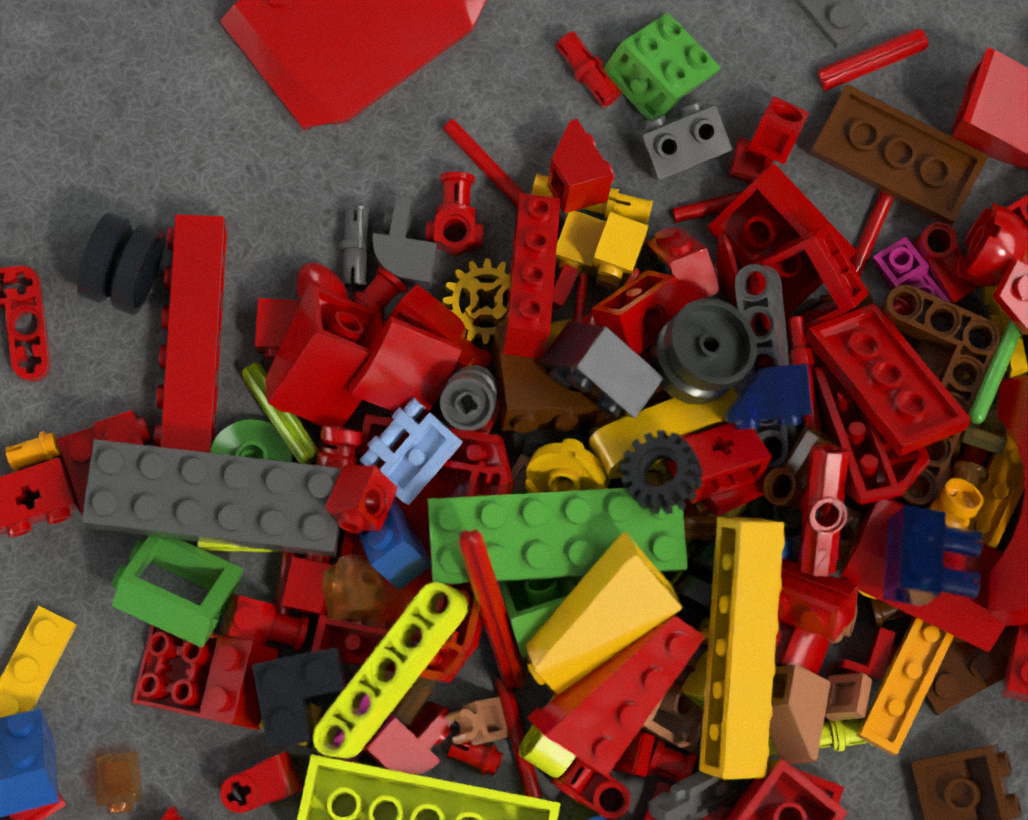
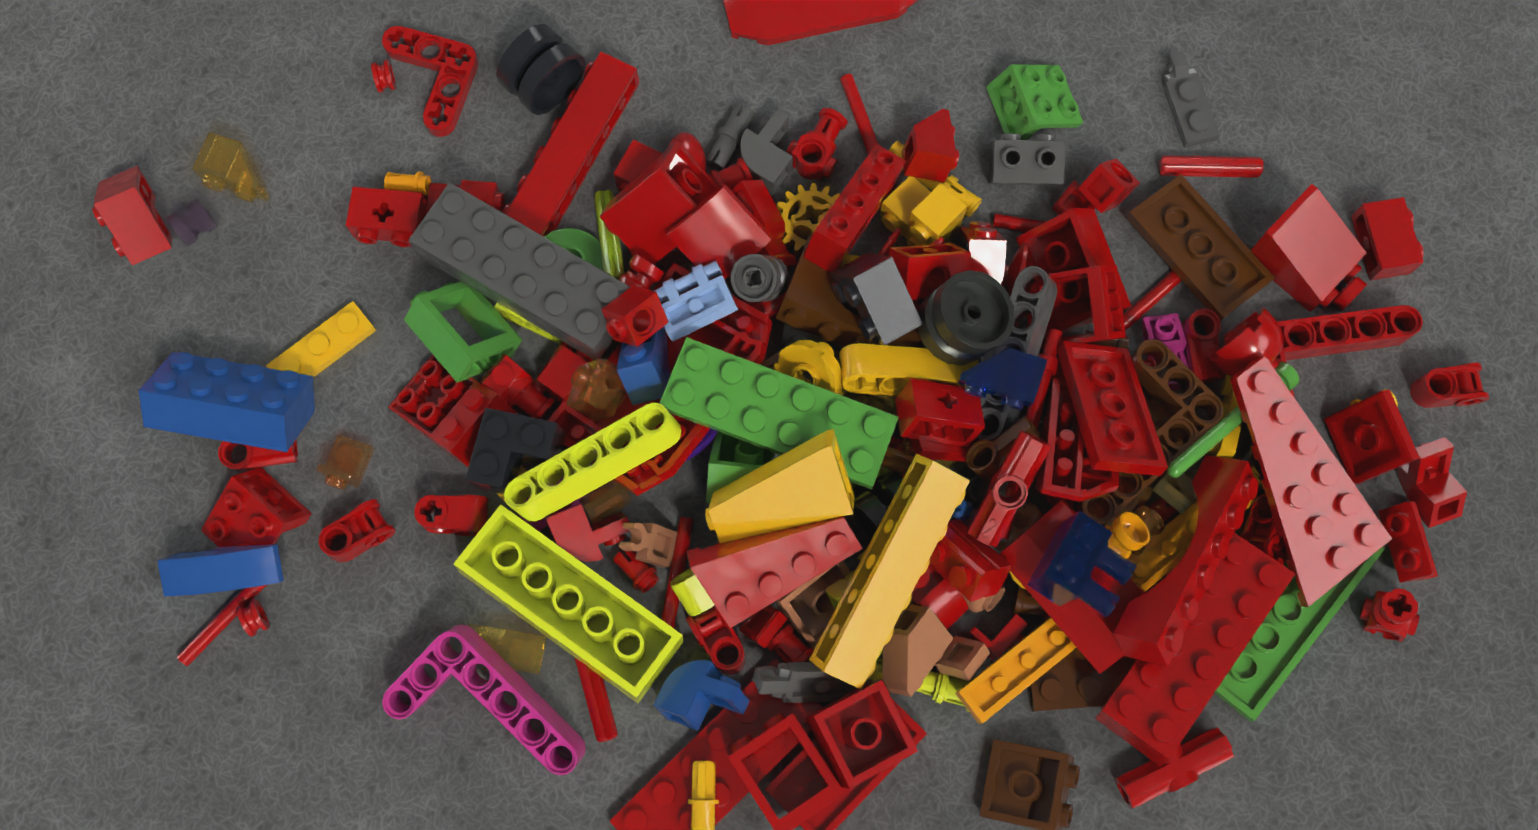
camera: 30 degrees right, 5 degrees down
(492, 608) = (697, 446): red axle -> none
(563, 286) = (871, 238): red tile -> none
(588, 69) = (976, 80): red pin -> none
(645, 456) = (889, 412): black tyre -> none

